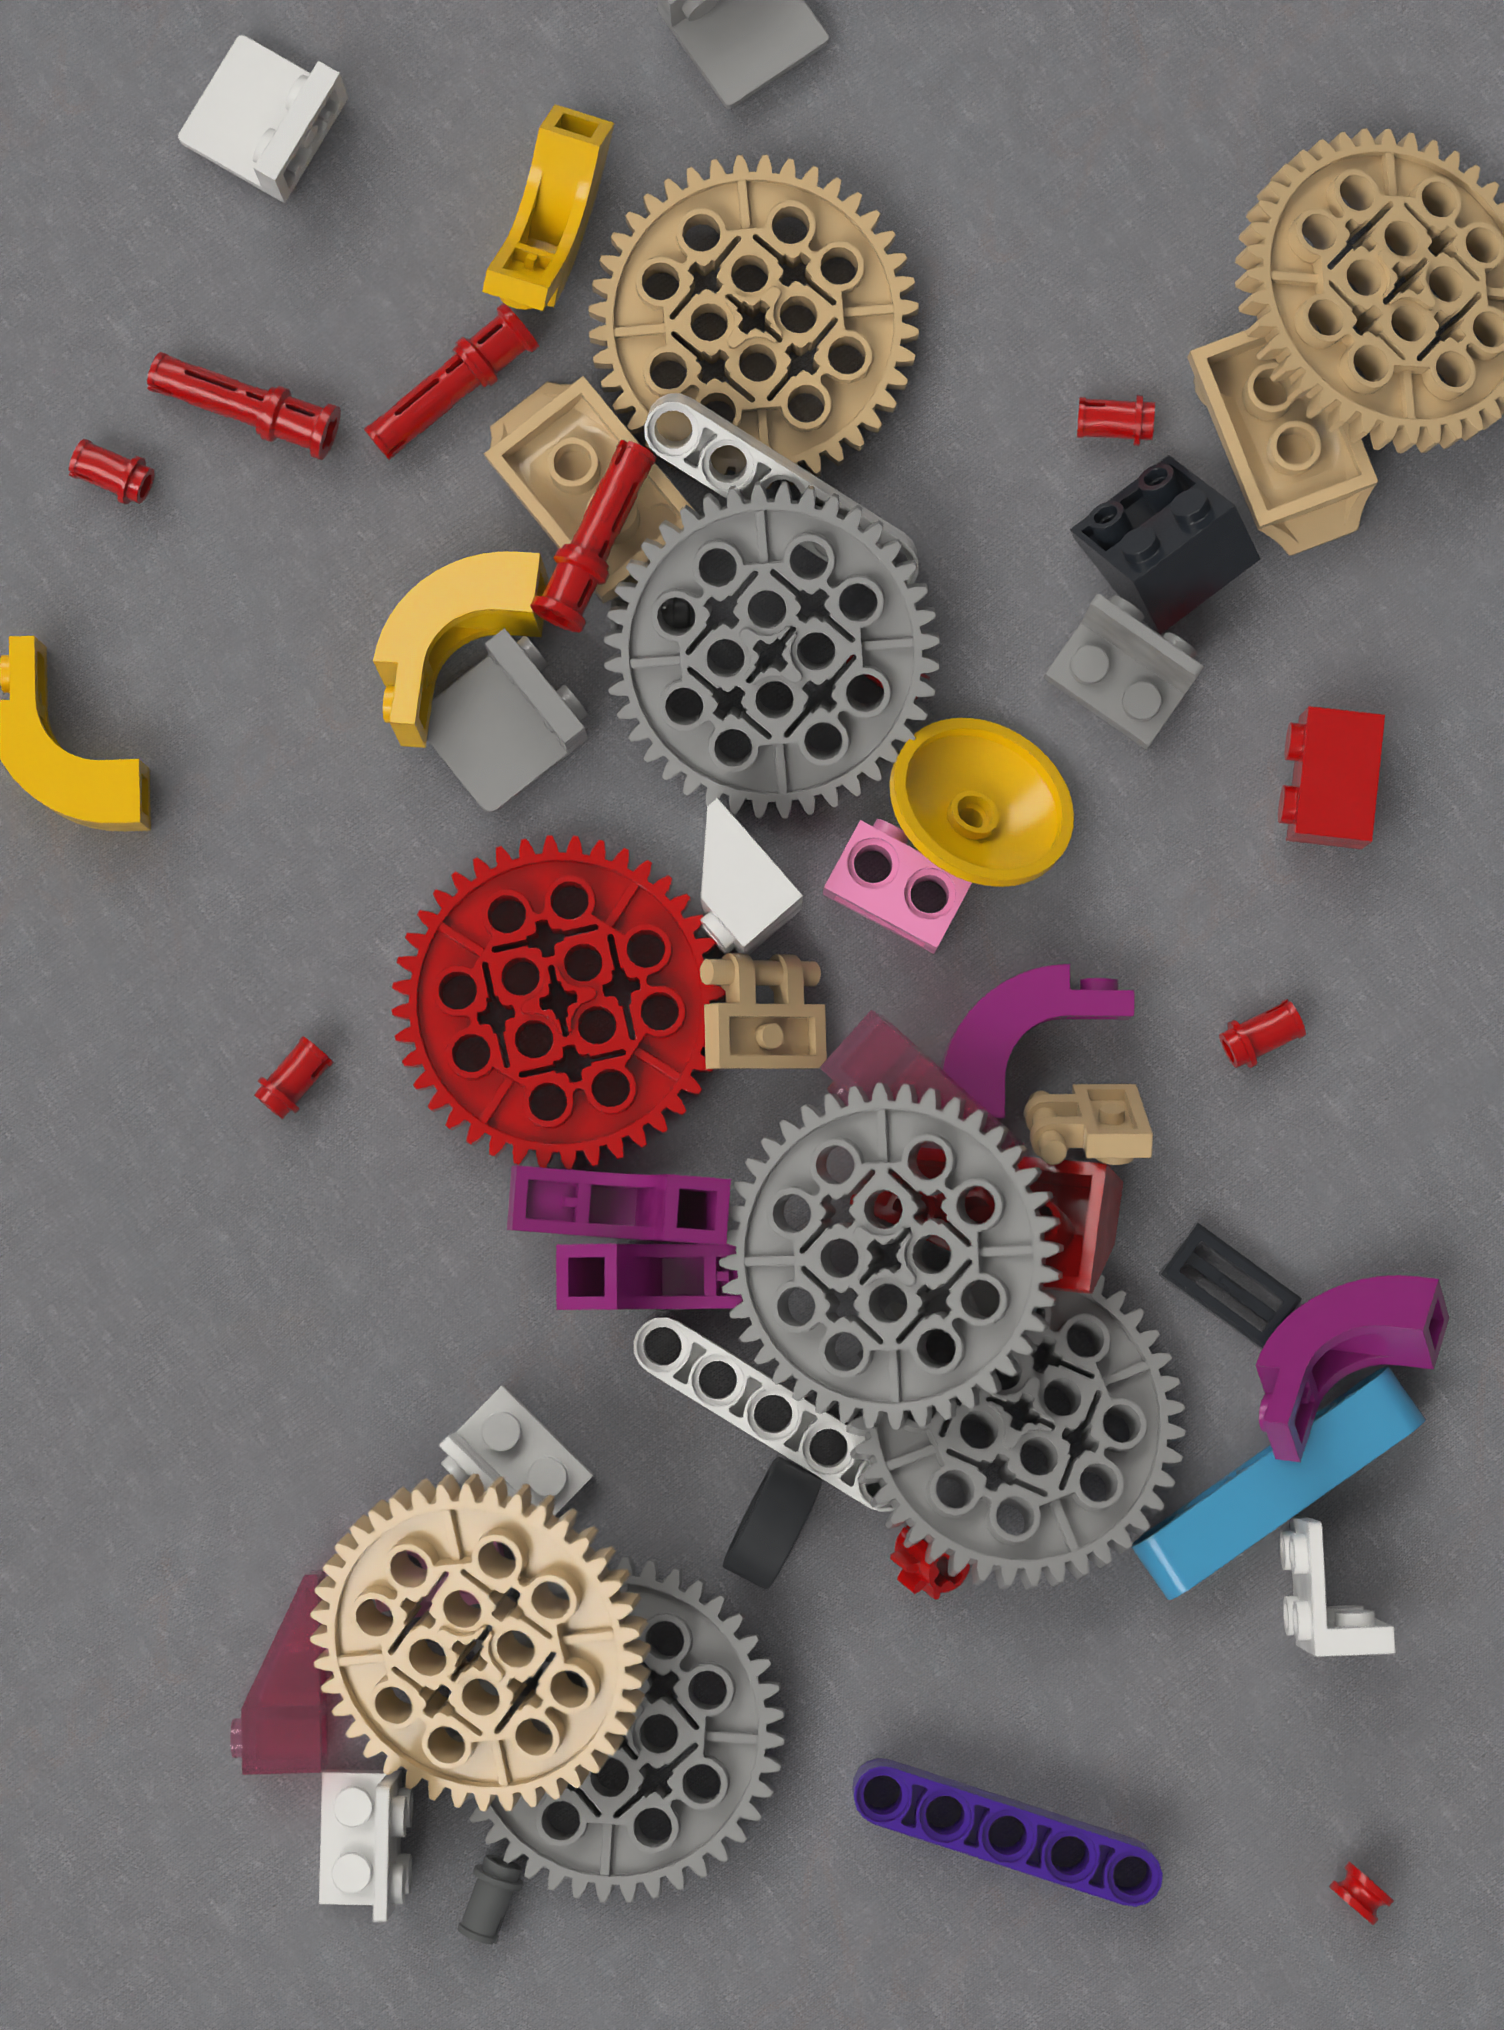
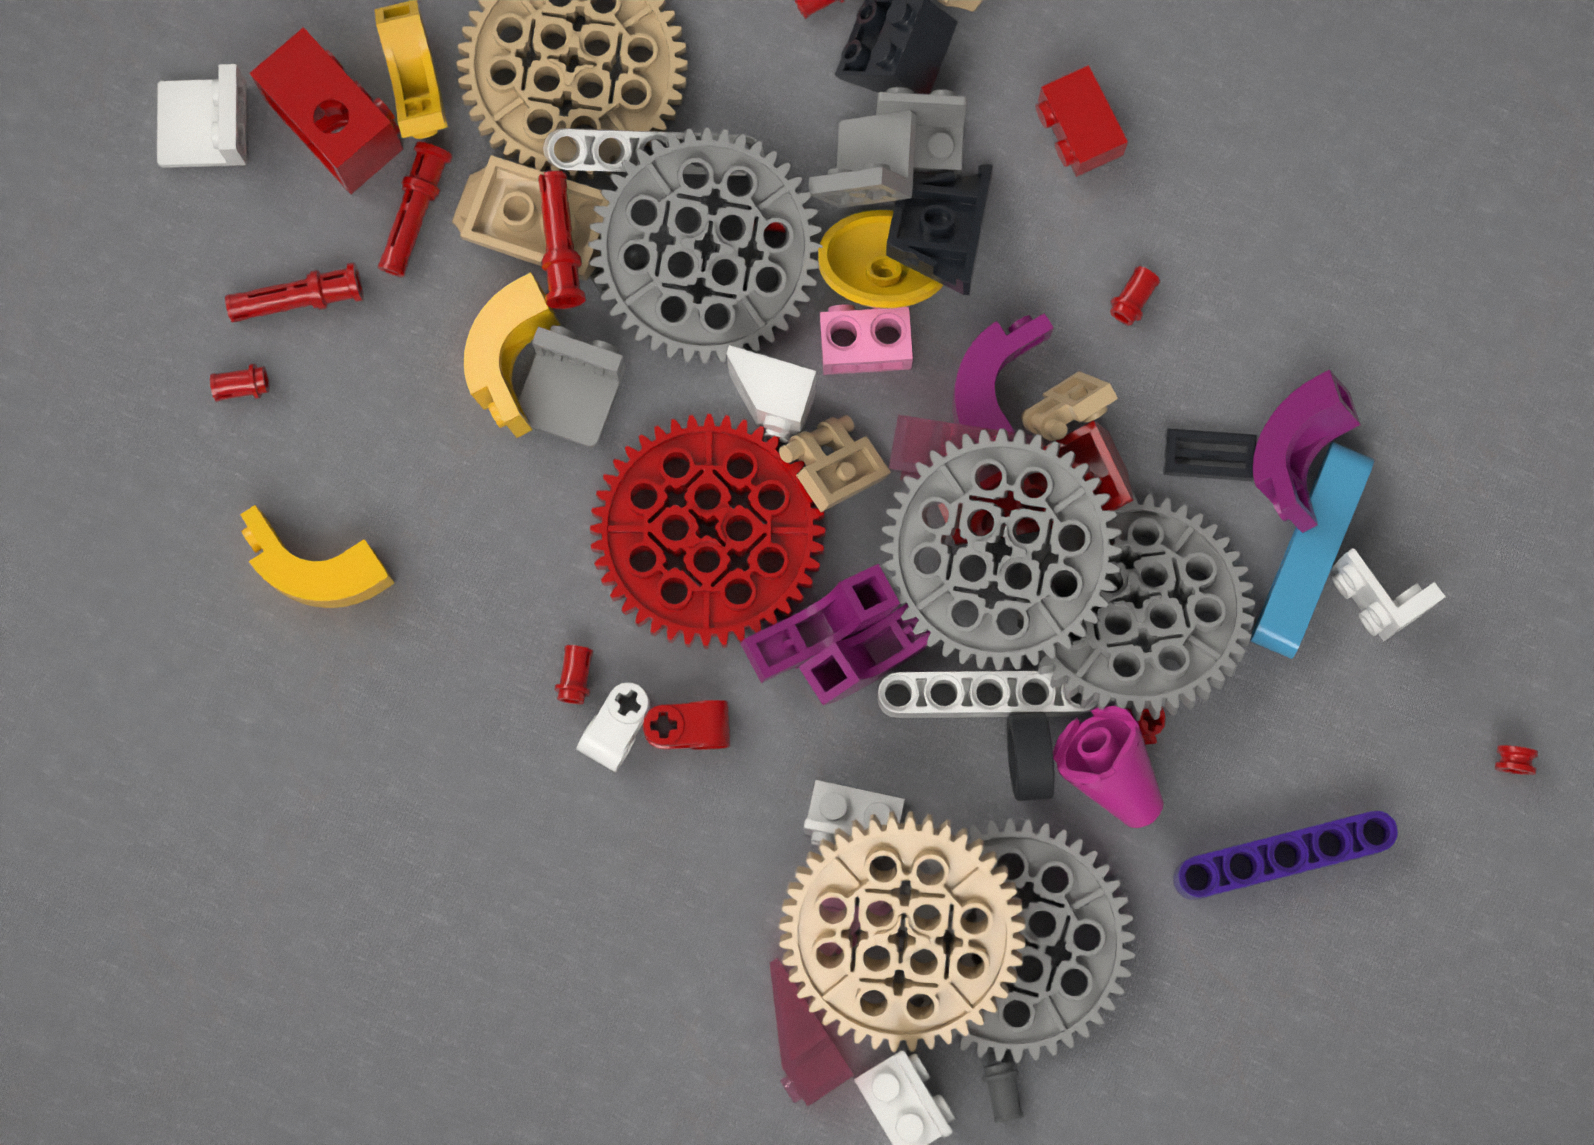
camera: 30 degrees left, 5 degrees down
(295, 1176) = (612, 734): none -> white piece
(400, 1231) = (698, 723): none -> red piece
(413, 176) = (309, 82): none -> red piece
(858, 1595) = (1111, 765): none -> dark pink cone
(1042, 670) = (872, 161): none -> light grey bracket
(1075, 804) = (941, 227): none -> black wing

